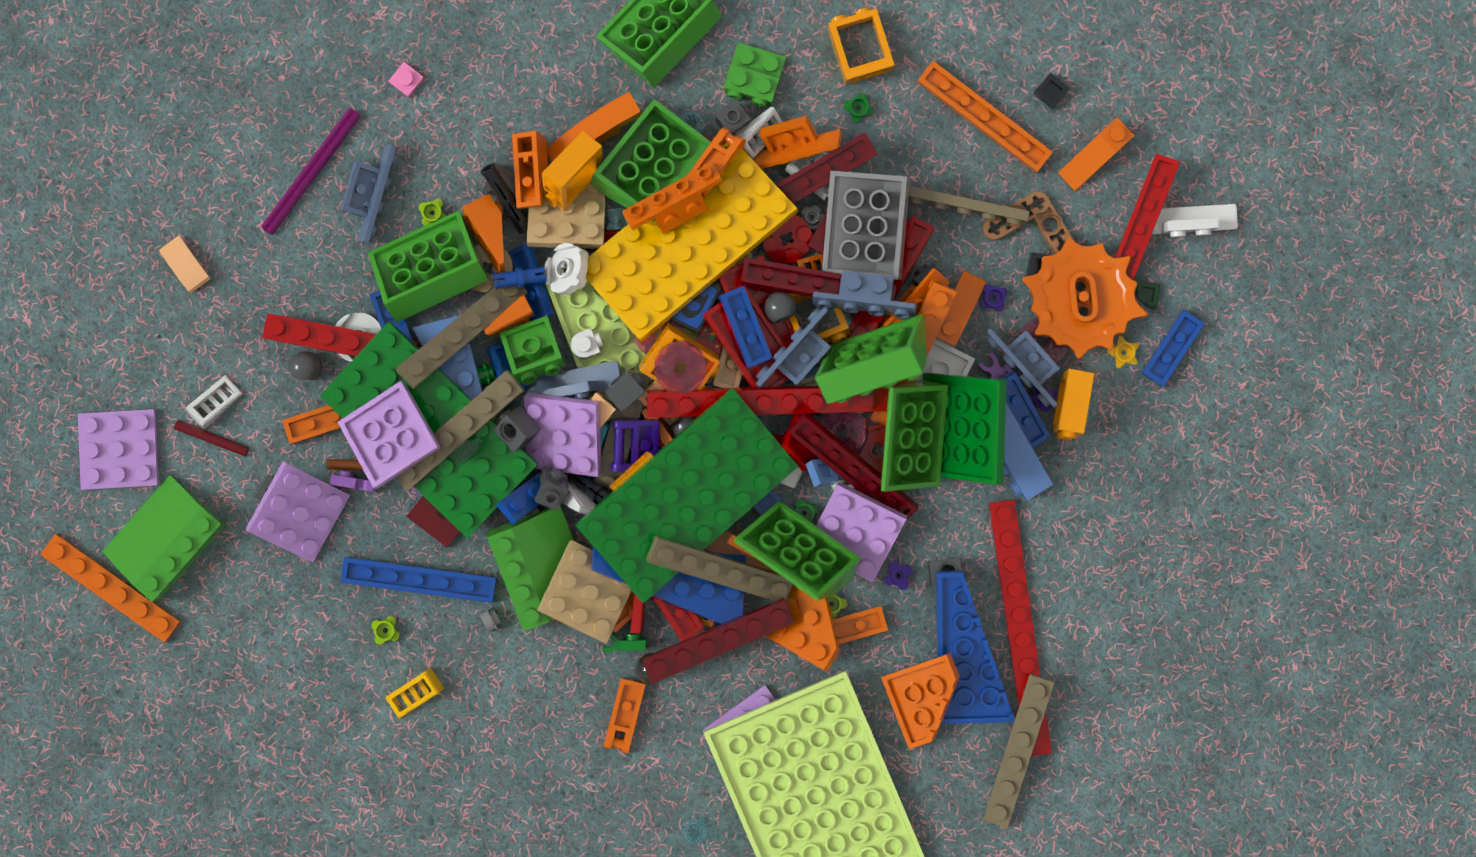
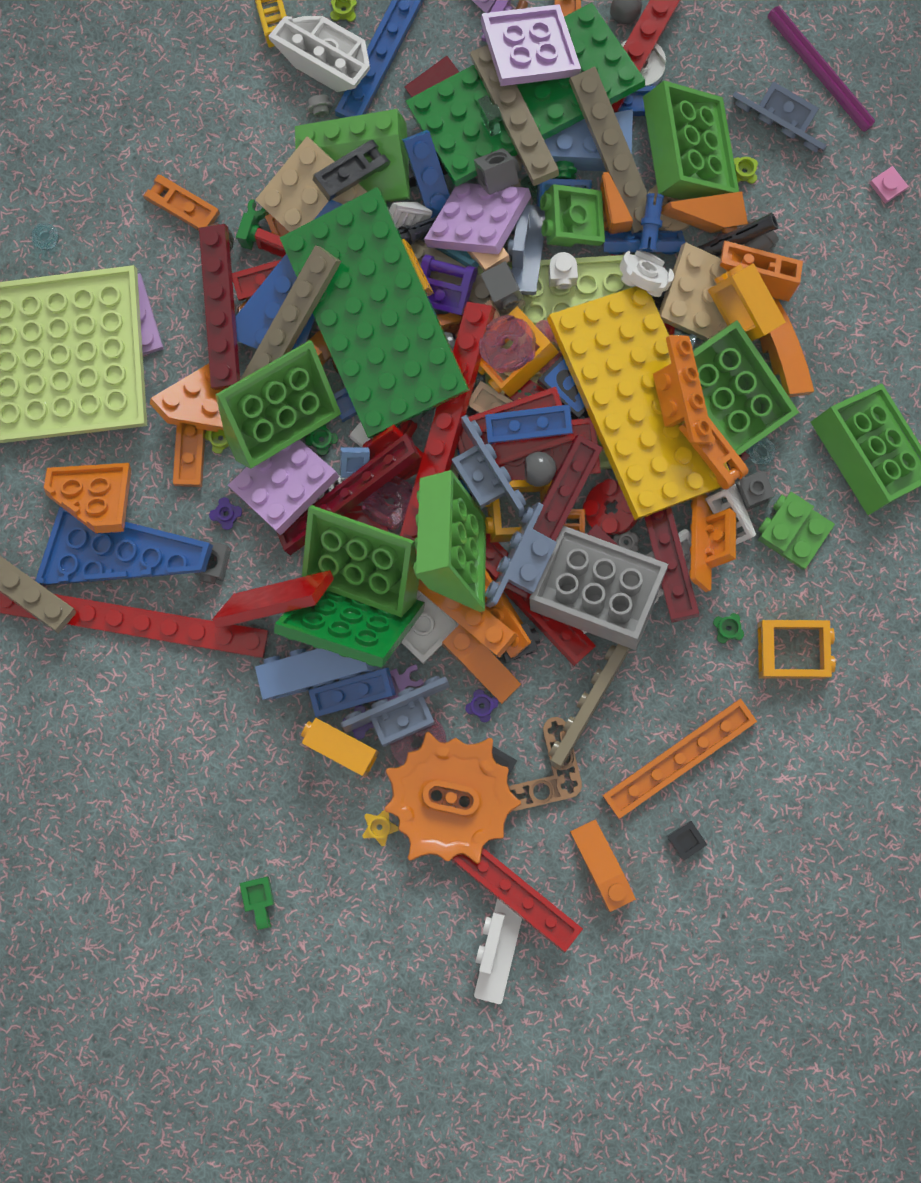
camera: 115 degrees right, 5 degrees down
(439, 629) = (322, 50): none -> white wedge
(553, 487) = (427, 191): dark grey bracket -> none
(561, 559) = (350, 170): none -> black plate
(967, 500) = (273, 599): none -> red tile
(1148, 293) = (434, 874): dark green tile -> none
(1172, 348) = (366, 880): blue plate -> none
(1217, 435) = (258, 896): none -> green plate

